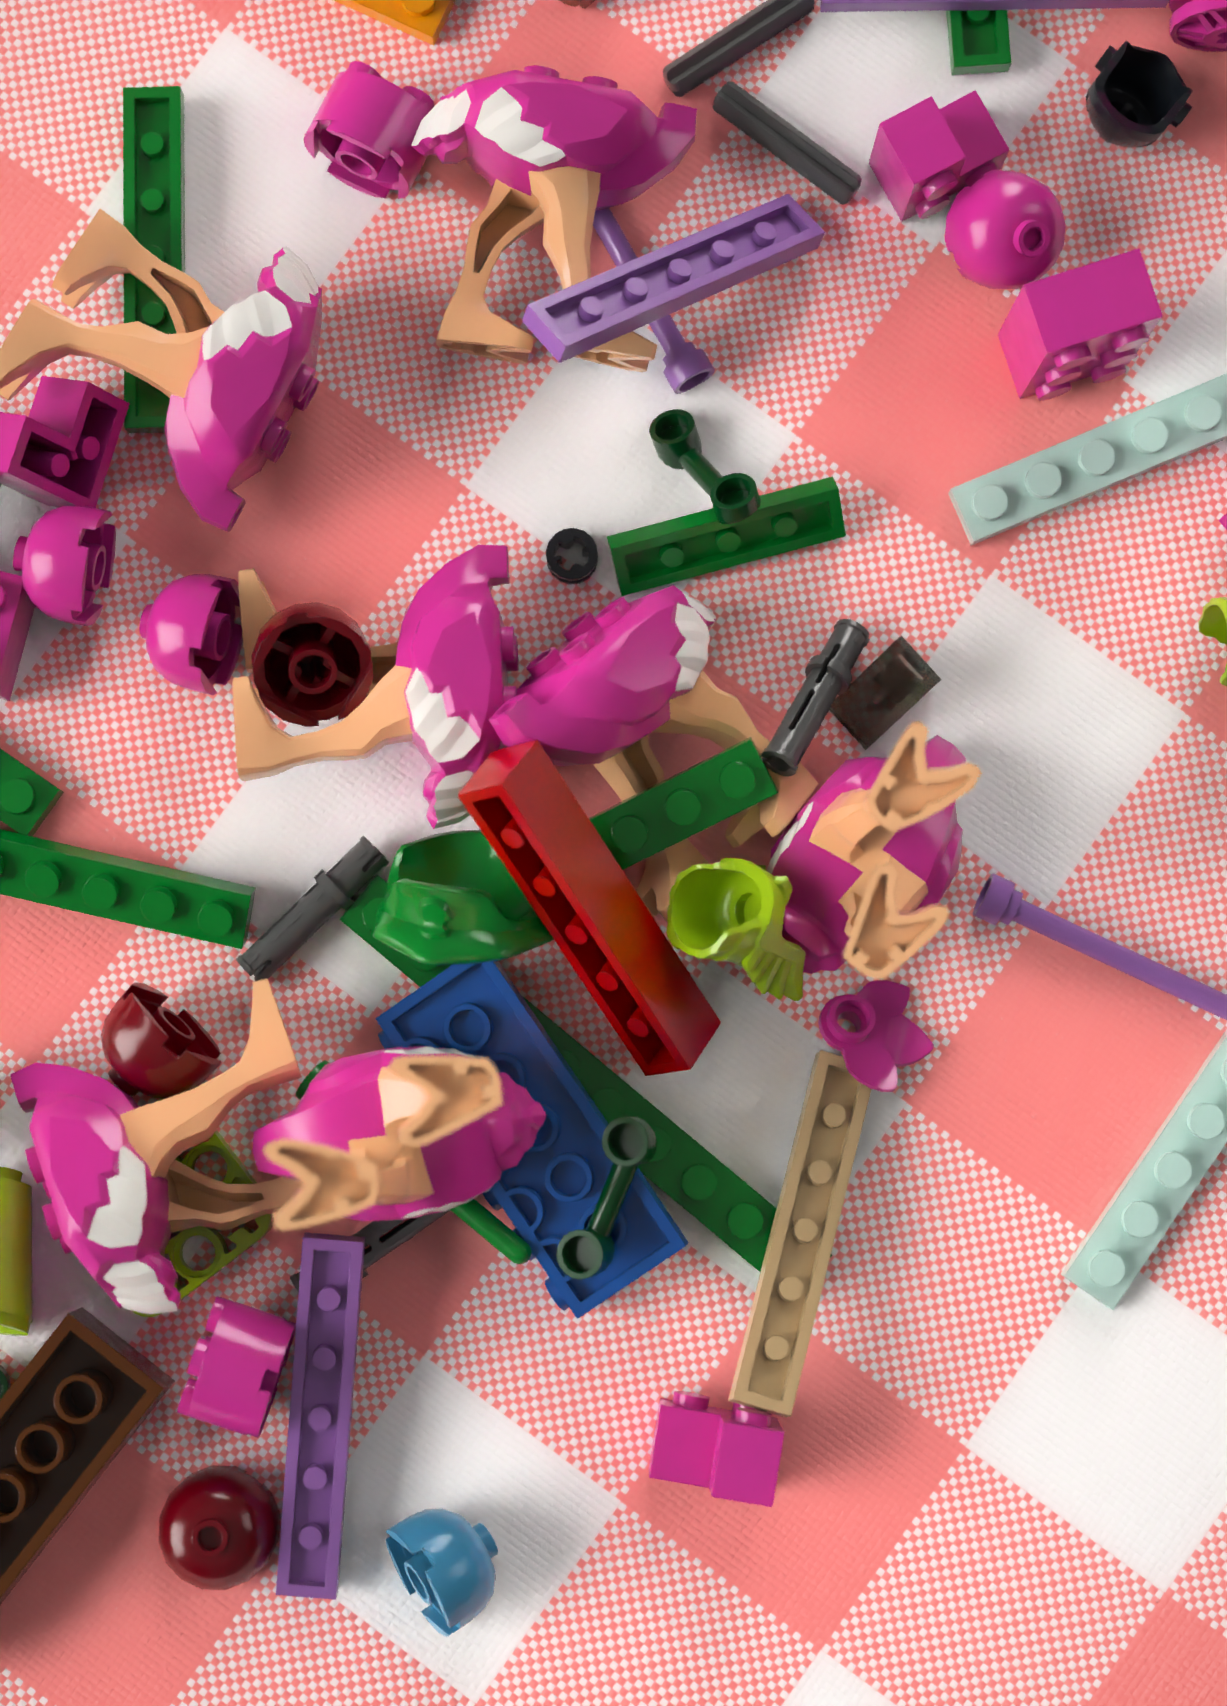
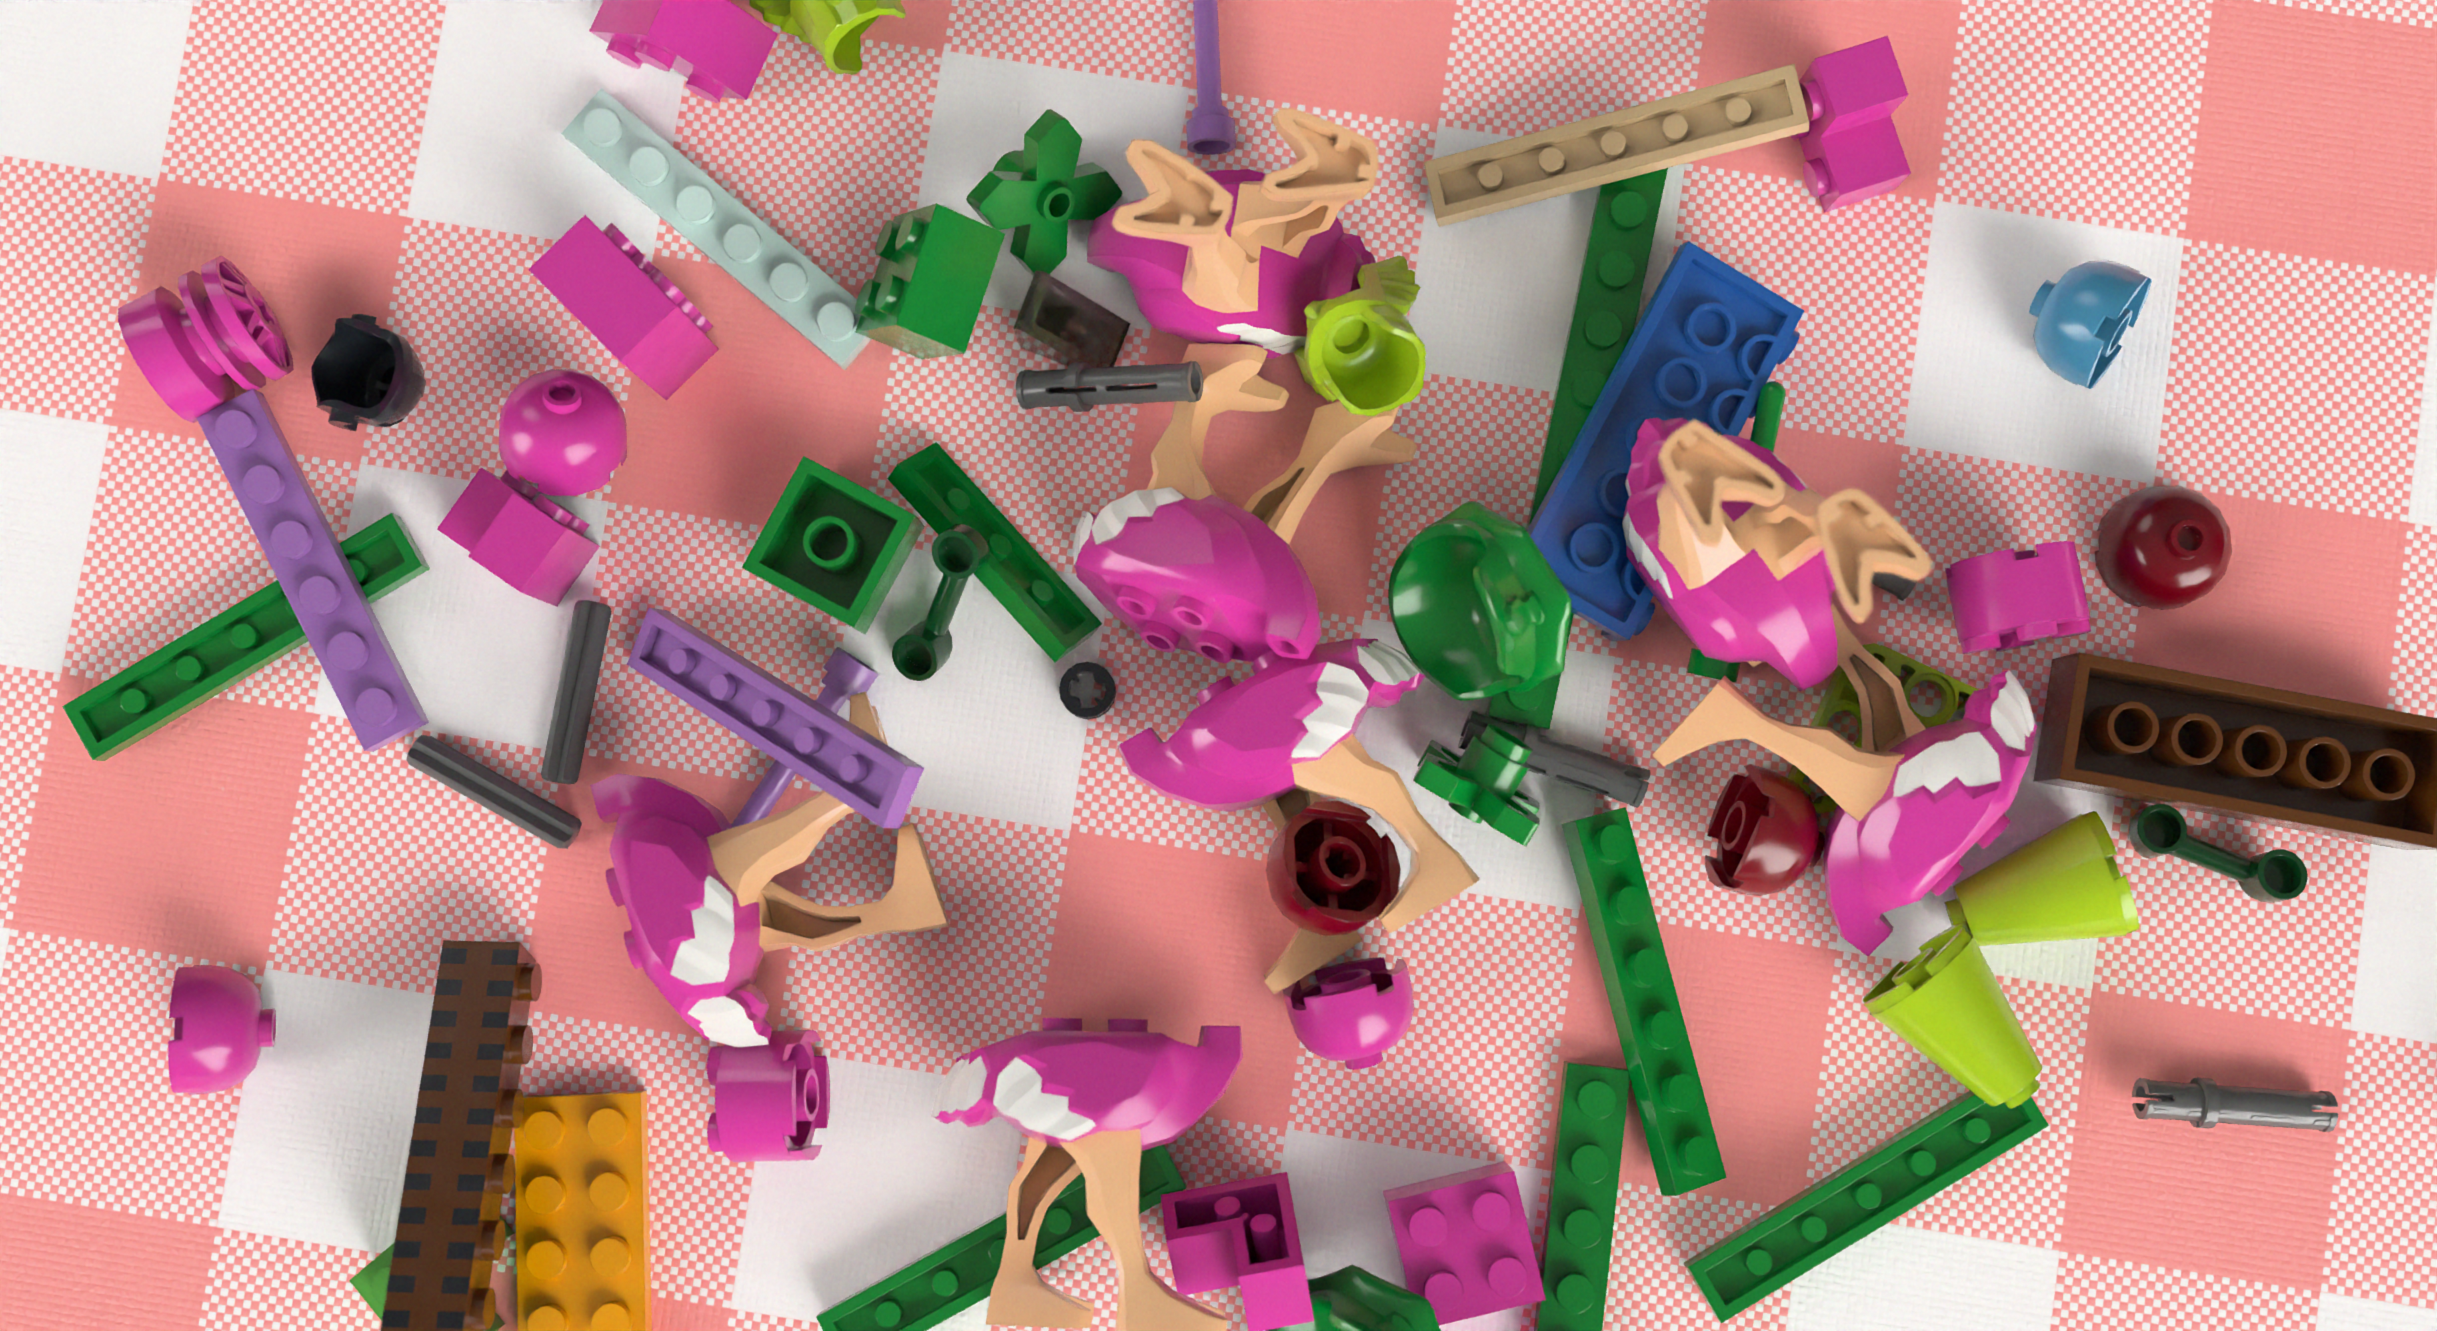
camera: 115 degrees left, 0 degrees up
(67, 562) = (1350, 1170): dark pink cylinder -> none
(320, 831) = (1484, 782): none -> green plant
(320, 1415) = (2044, 490): medium lavender plate -> none
(590, 908) = (1427, 483): red brick -> none
(591, 1250) = (1737, 325): dark green bar -> none
(685, 804) = (1304, 470): green plate -> none
(796, 403) = (834, 545): none -> green brick
(882, 1034) = (1403, 174): dark pink plate -> none
(978, 586) = (928, 282): none -> green brick
(1012, 721) = (1042, 191): none -> green plant

